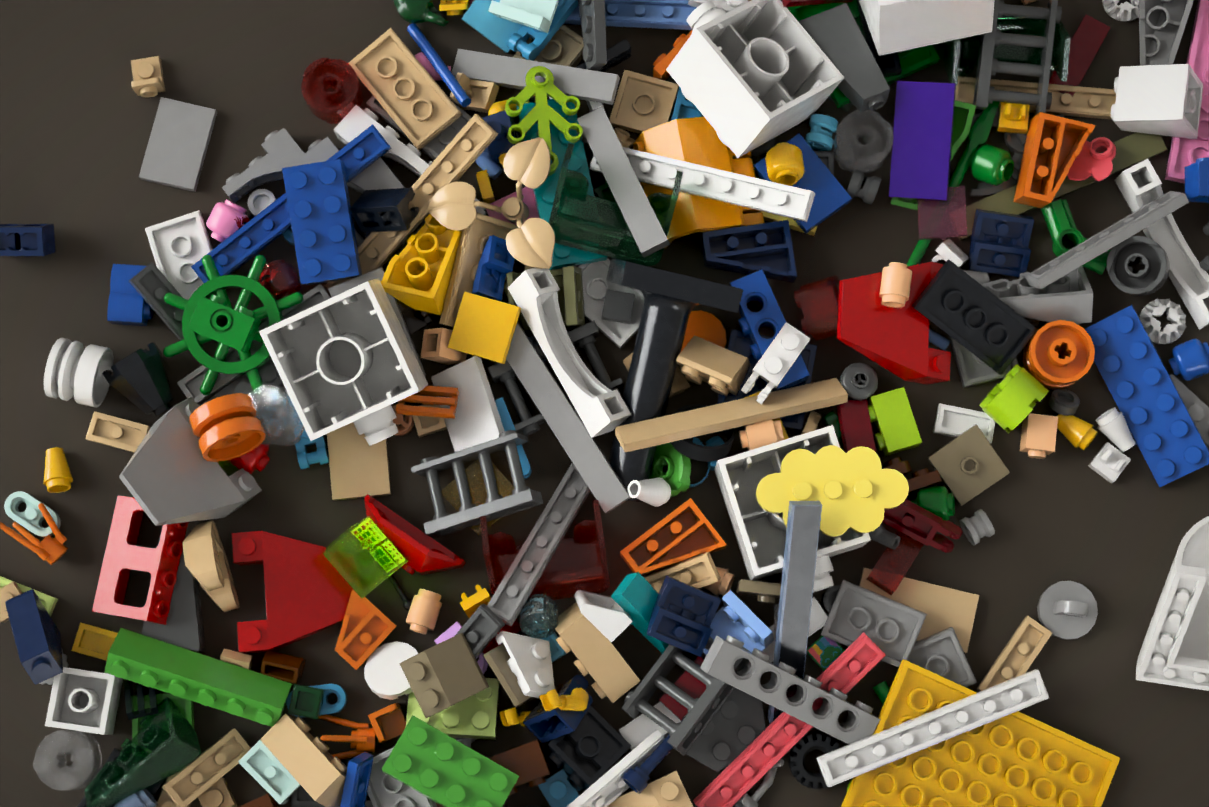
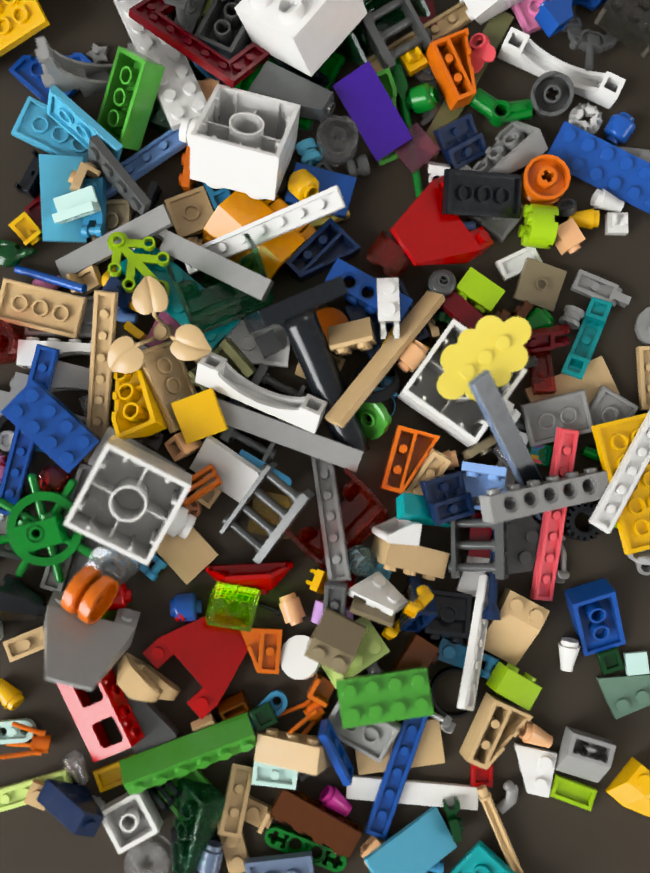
camera: 40 degrees left, 5 degrees up
(68, 602) = (75, 765): none -> clear cone
(312, 521) = (185, 607): none -> blue head
(384, 210) = (84, 390): black hinge -> none
(492, 269) = (177, 377): blue slope -> none
(651, 491) = (373, 437): white cone -> none
(895, 285) = (425, 207): light nougat brick -> none
(976, 564) = (587, 338): none -> teal slope
(1032, 520) = (595, 286): none -> light grey hinge
(1106, 239) = (523, 91): light grey tile -> none

